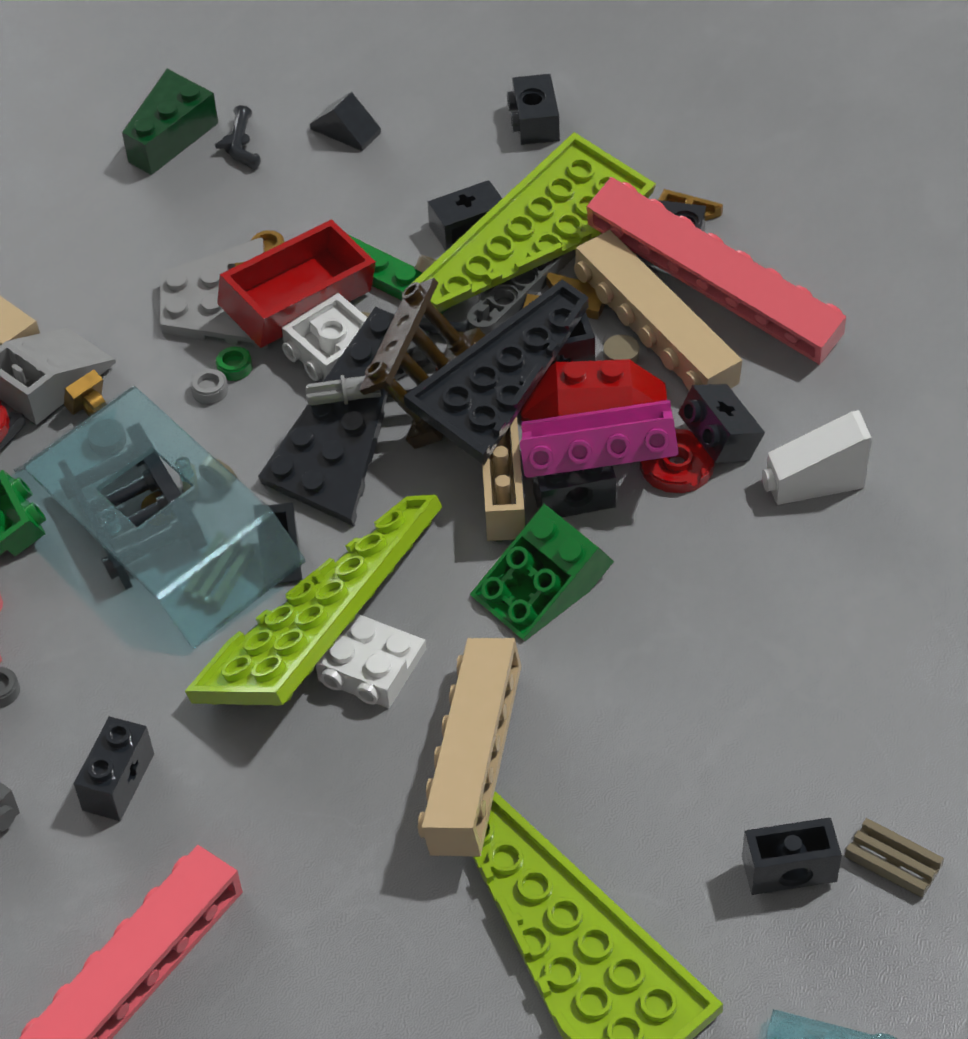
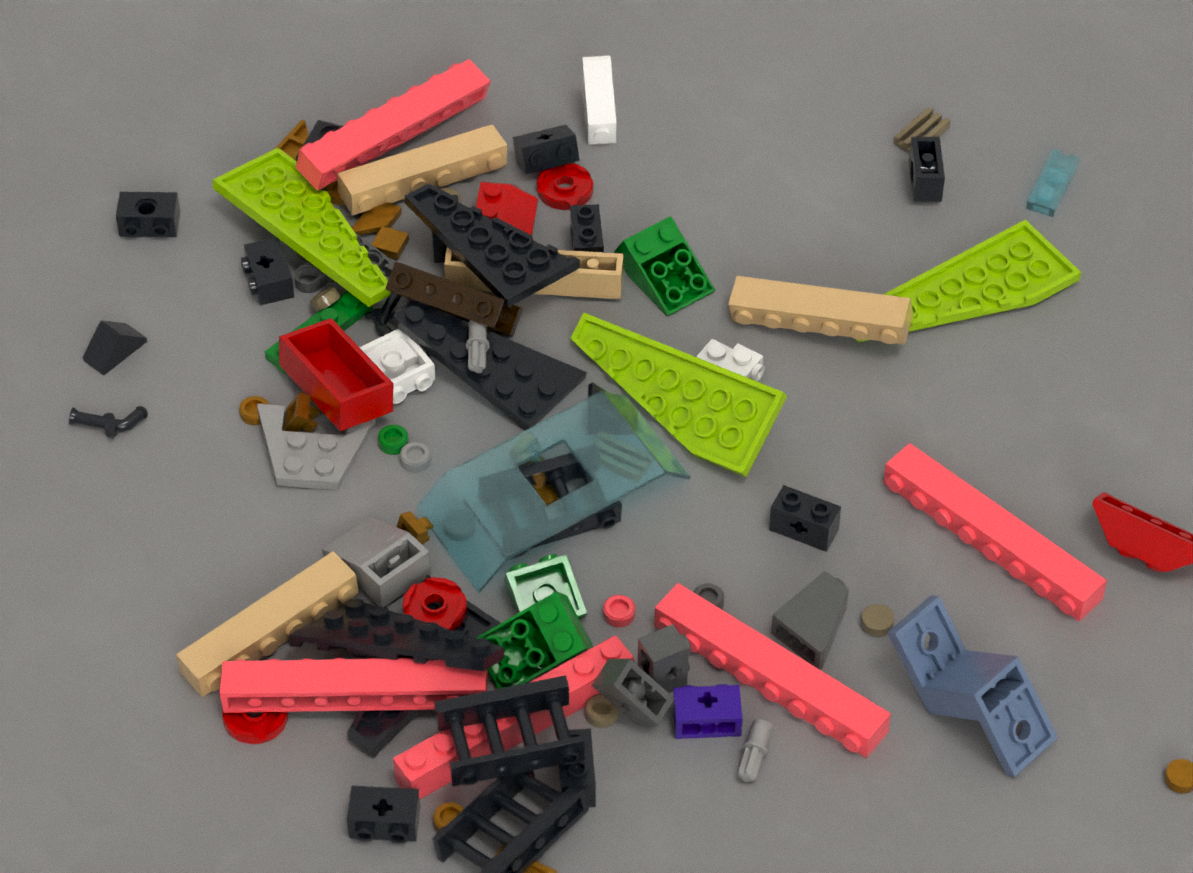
camera: 85 degrees left, 0 degrees up
(168, 121) = (73, 462): dark green wedge -> none
(598, 439) = (547, 189): dark pink fence -> none

